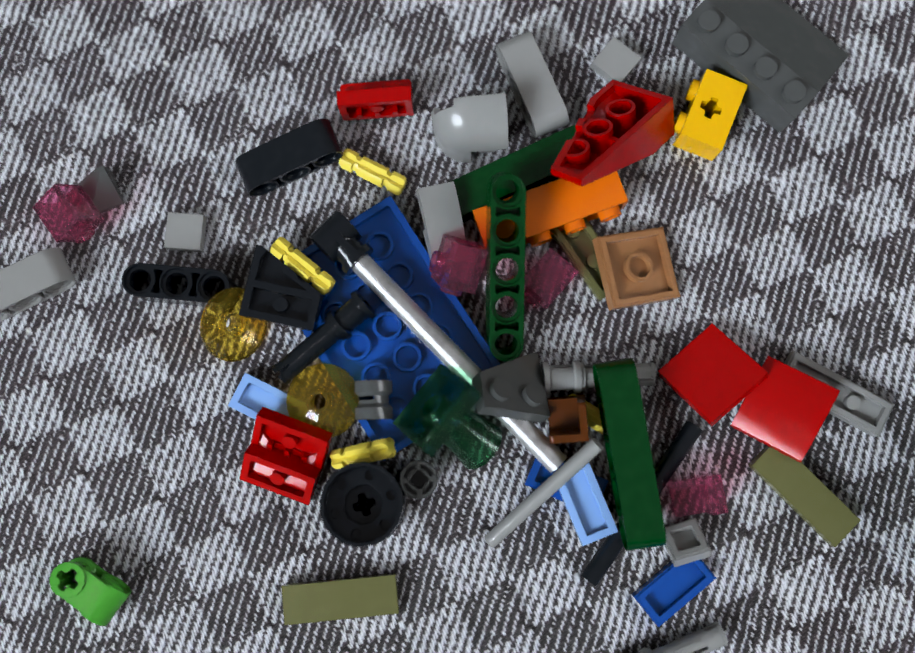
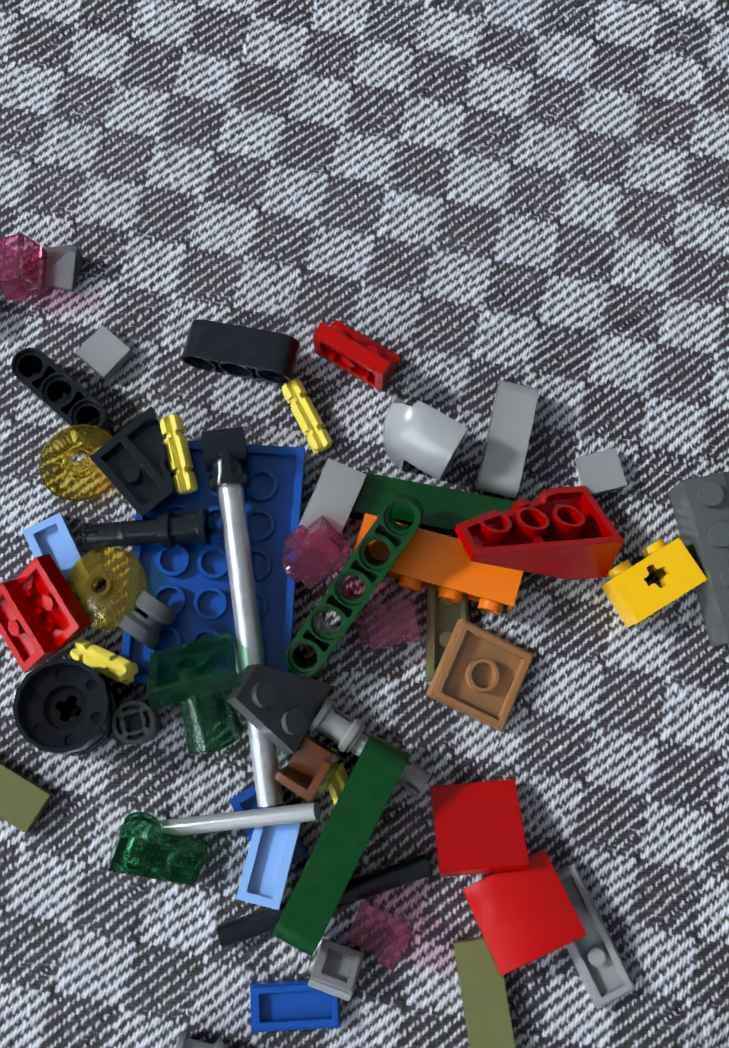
camera: 30 degrees right, 5 degrees down
(498, 560) = (149, 853): none -> clear green plate

